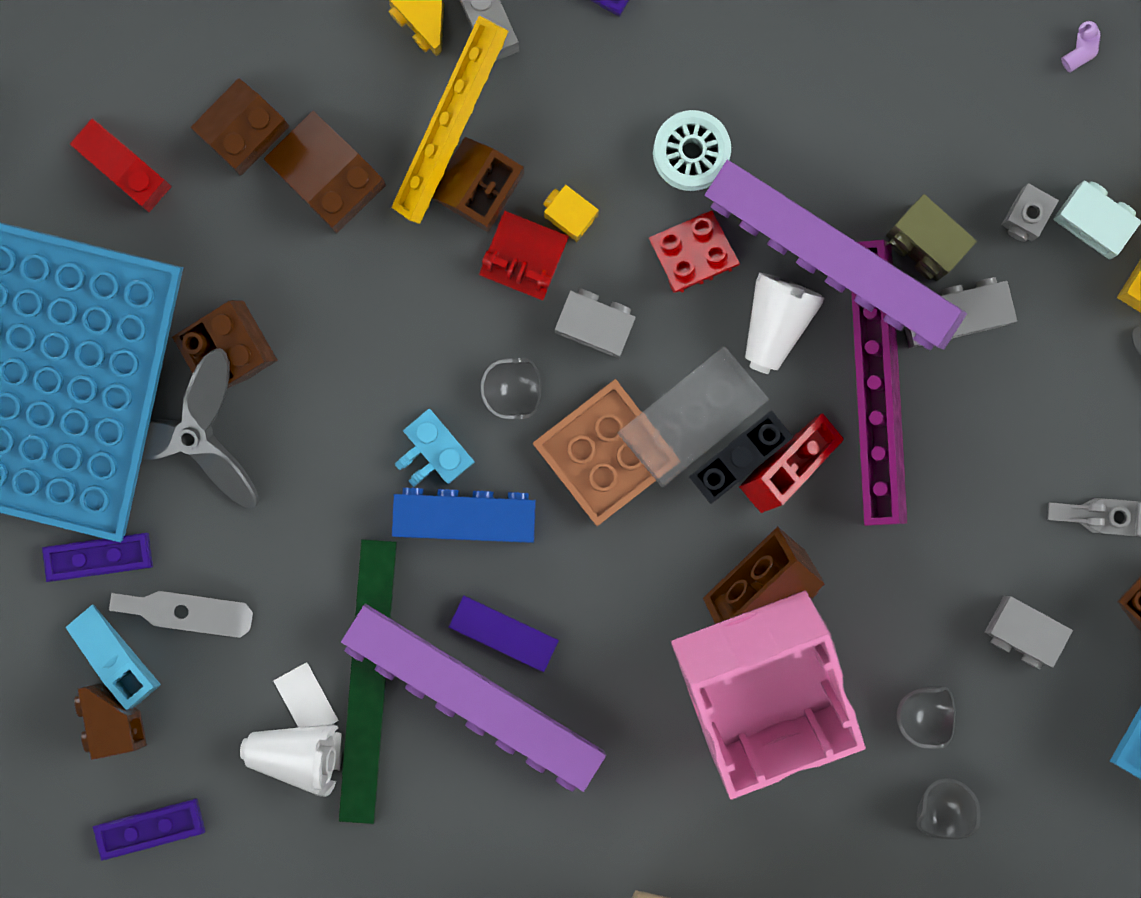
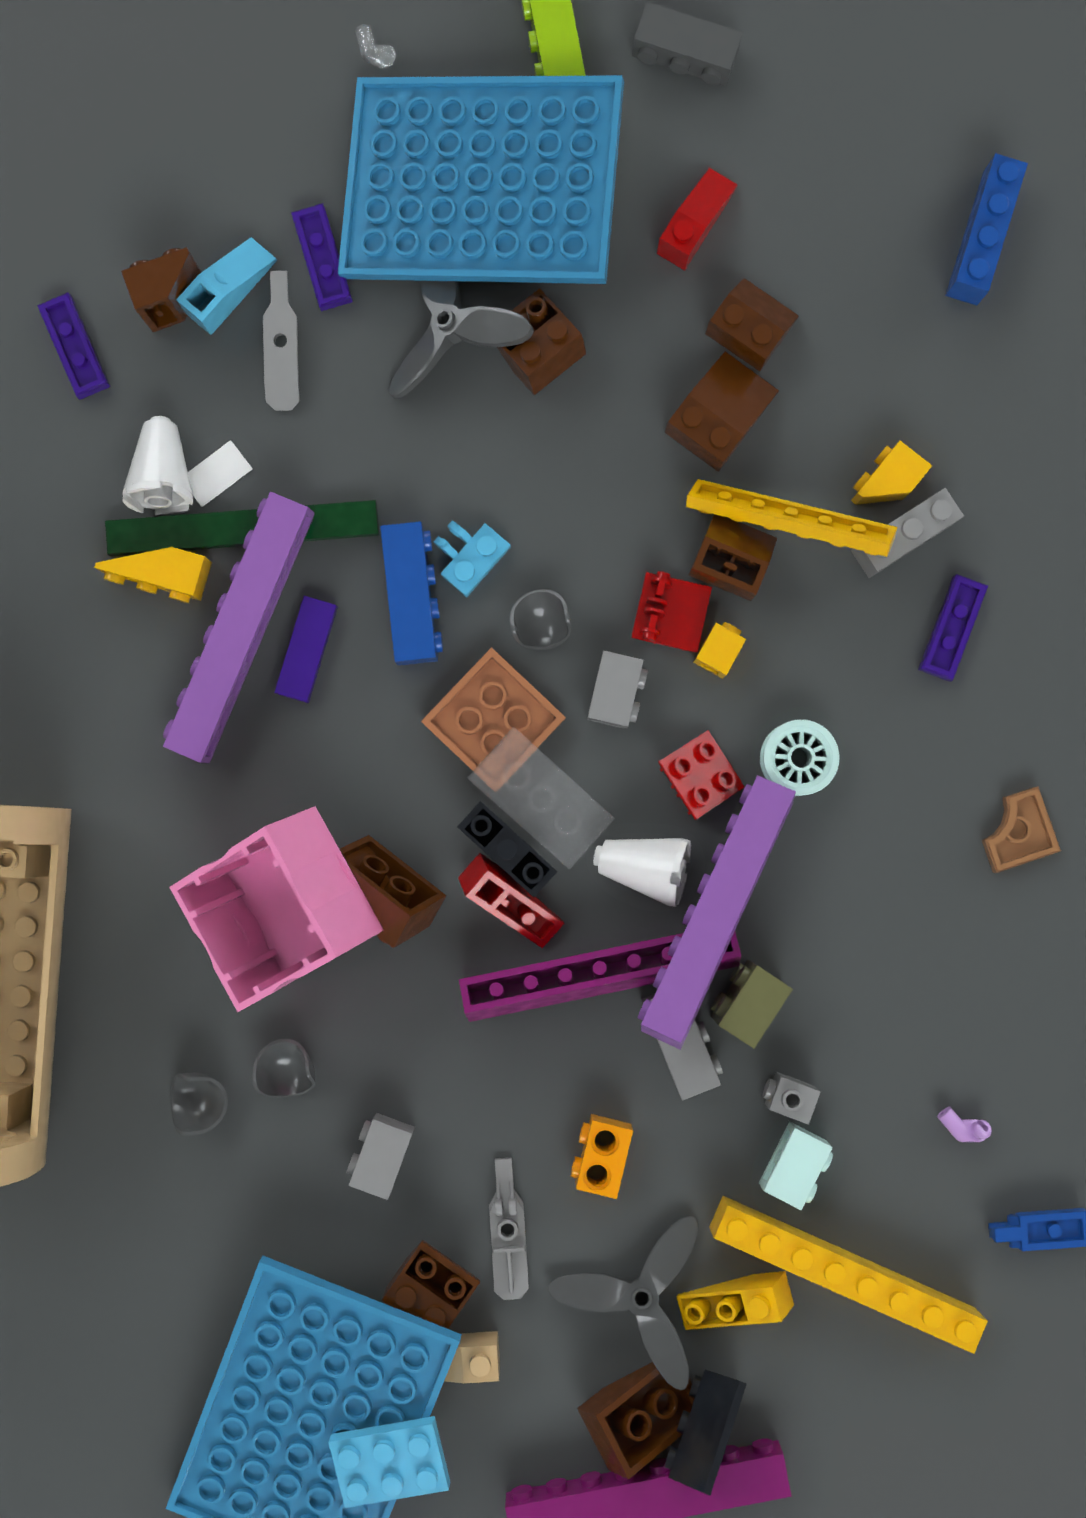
camera: 85 degrees right, 0 degrees up
(400, 764) = (166, 569): none -> yellow slope
(1062, 401) = (611, 1156): none -> light orange brick

